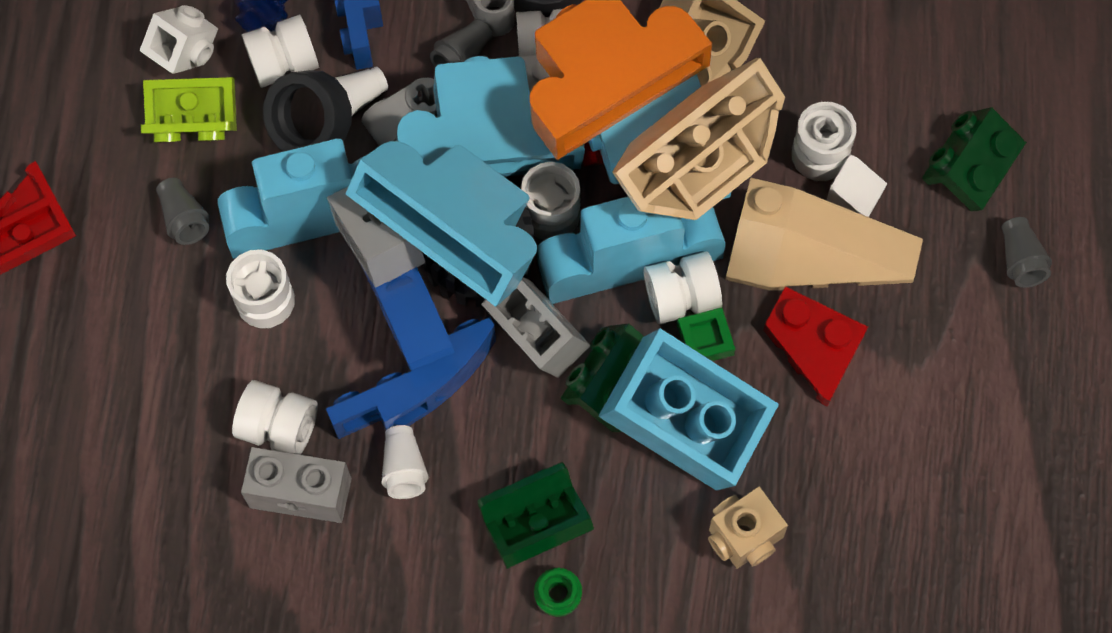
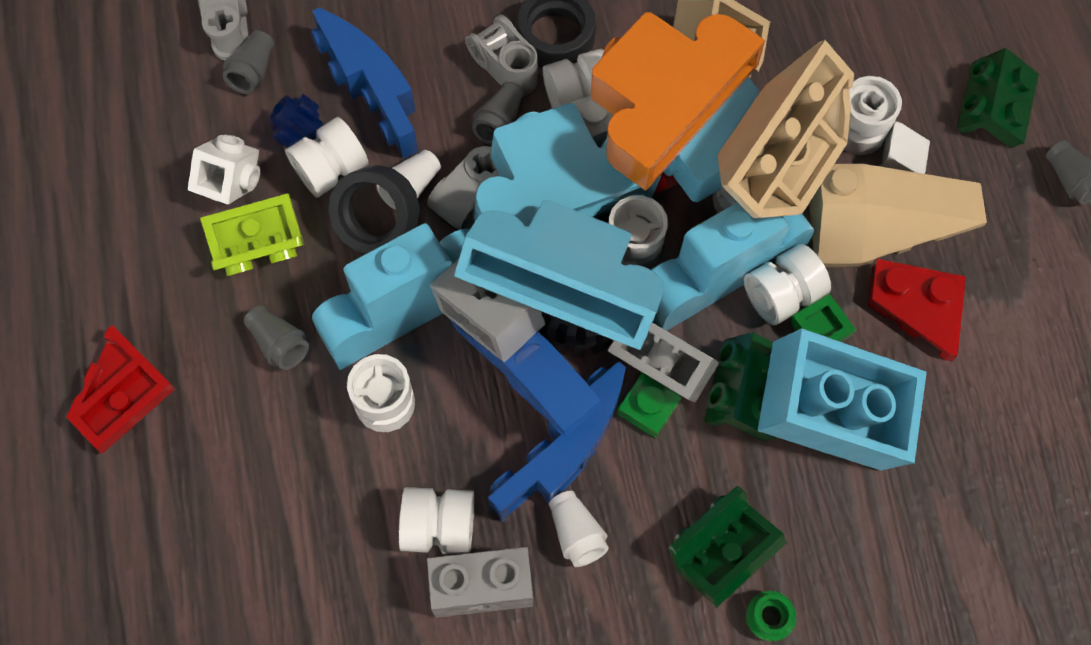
camera: 20 degrees left, 0 degrees up
(511, 369) = (649, 405): none -> green plate
(761, 524) = (933, 501): tan brick -> none

